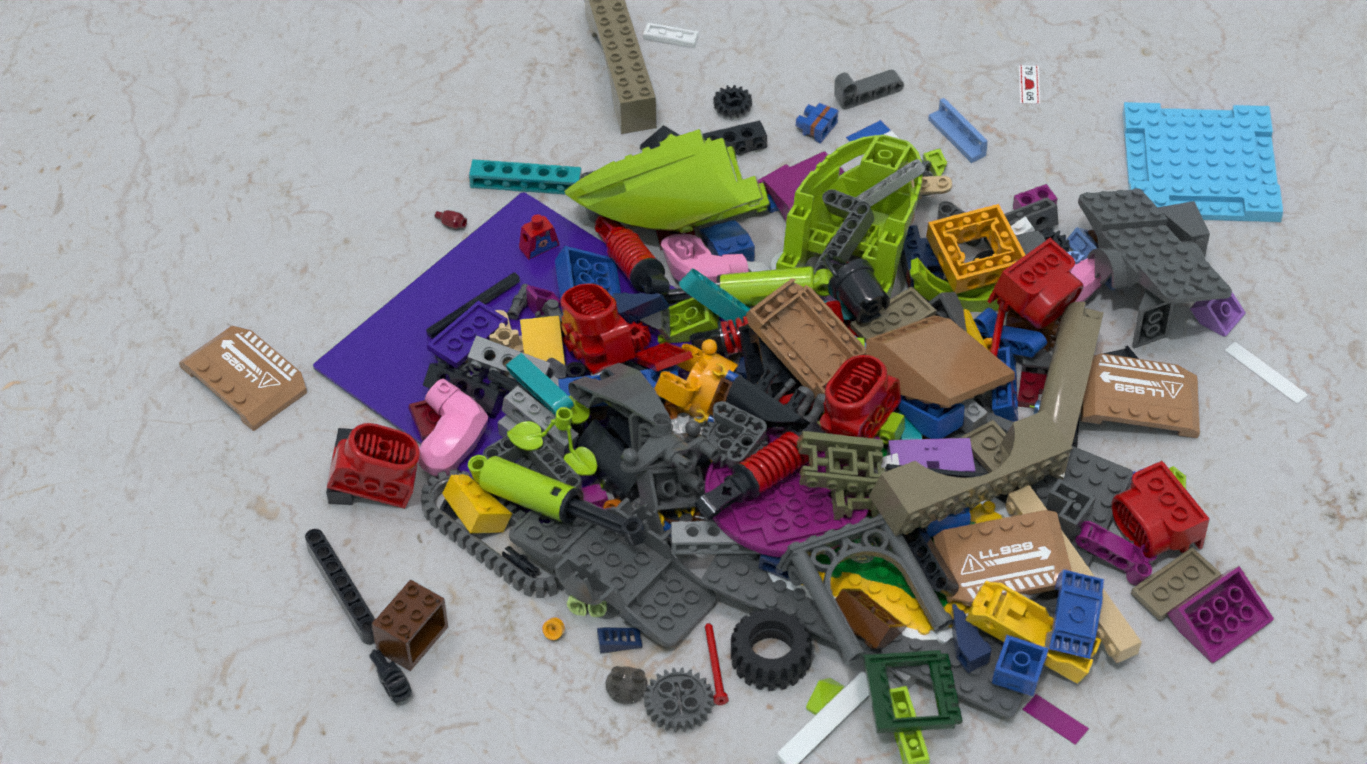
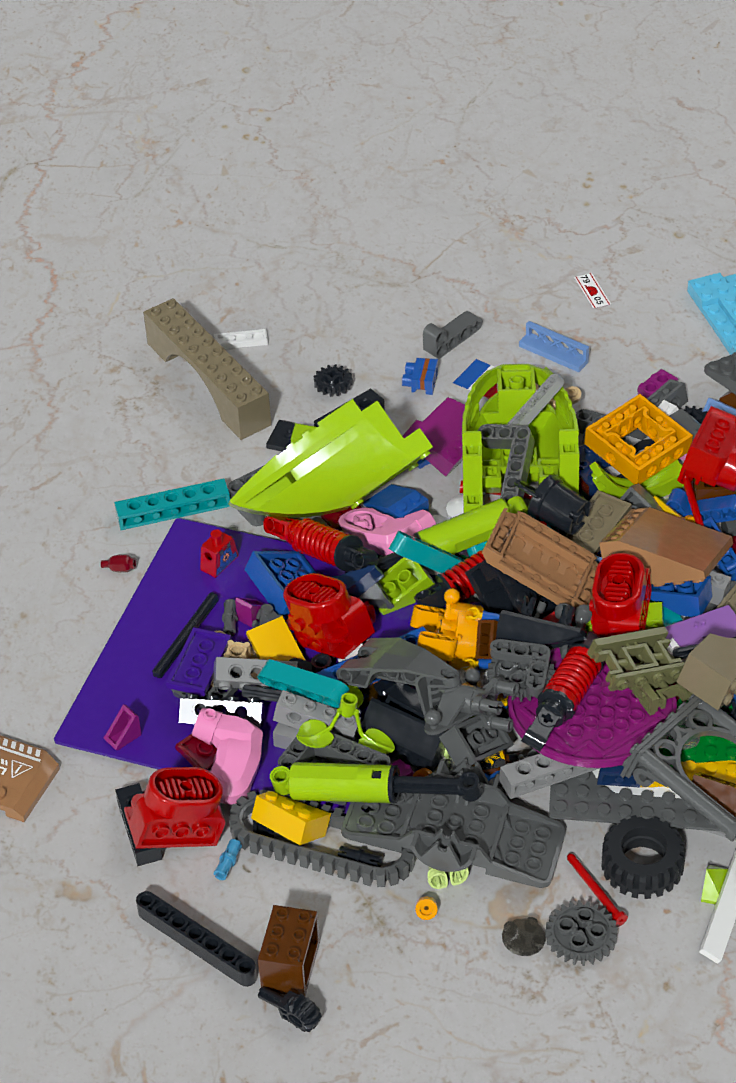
camera: 20 degrees left, 5 degrees down
(373, 375) = (123, 729): none -> magenta slope
(405, 524) = (227, 859): none -> dark azure pin
(614, 632) = (488, 906): dark blue slope -> none
(662, 356) = (402, 622): red tile -> none

